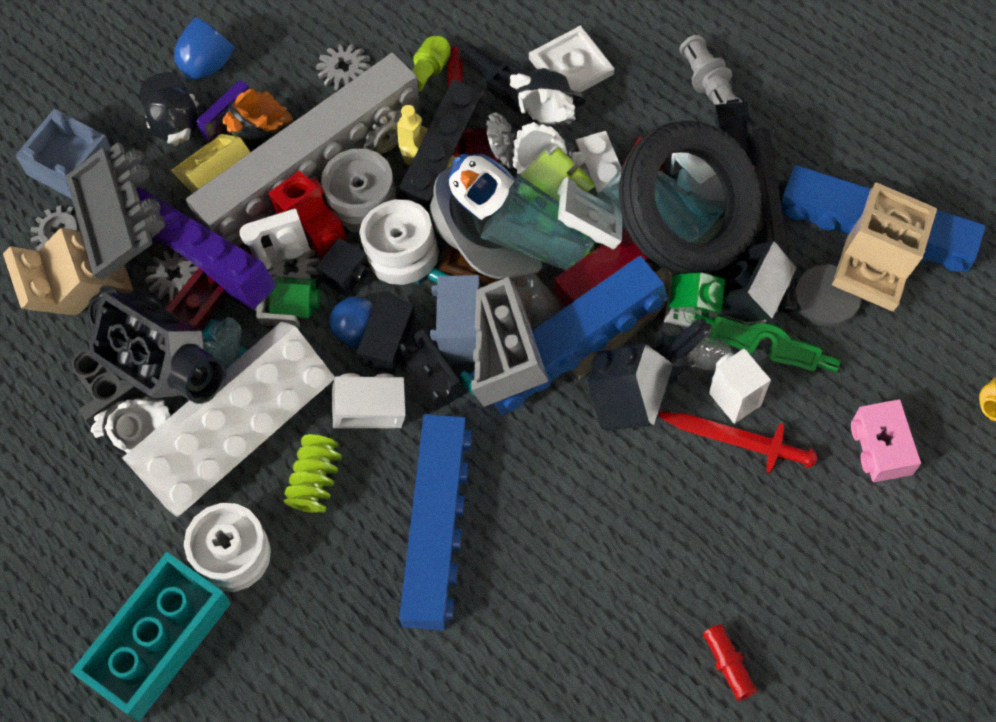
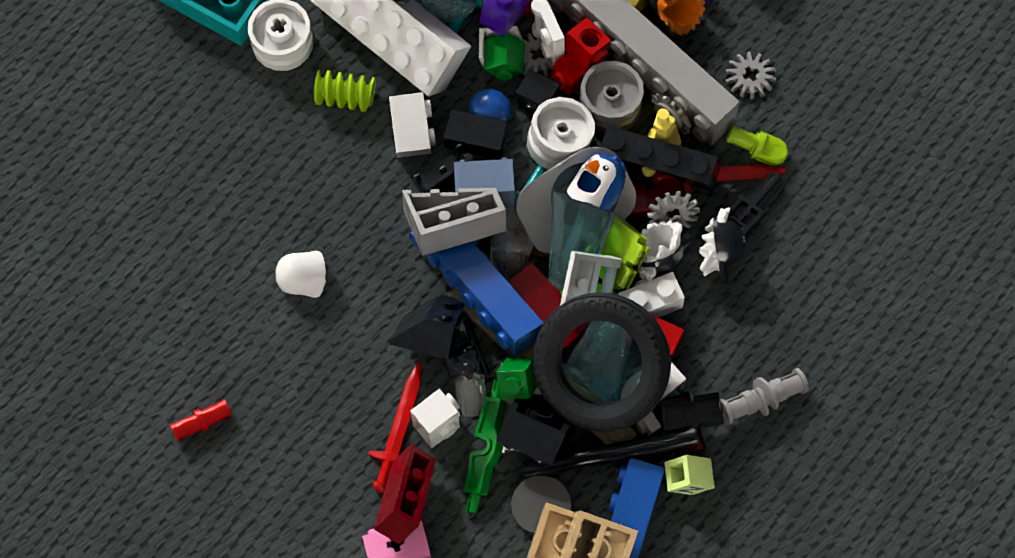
camera: 85 degrees right, 5 degrees up
(433, 523) = (310, 186): blue brick -> none
(546, 533) = (302, 273): none -> white hair
(574, 57) = (771, 272): white plate -> none
(799, 146) = (689, 475): none -> yellowish green brick
(835, 417) = (405, 494): none -> dark red brick

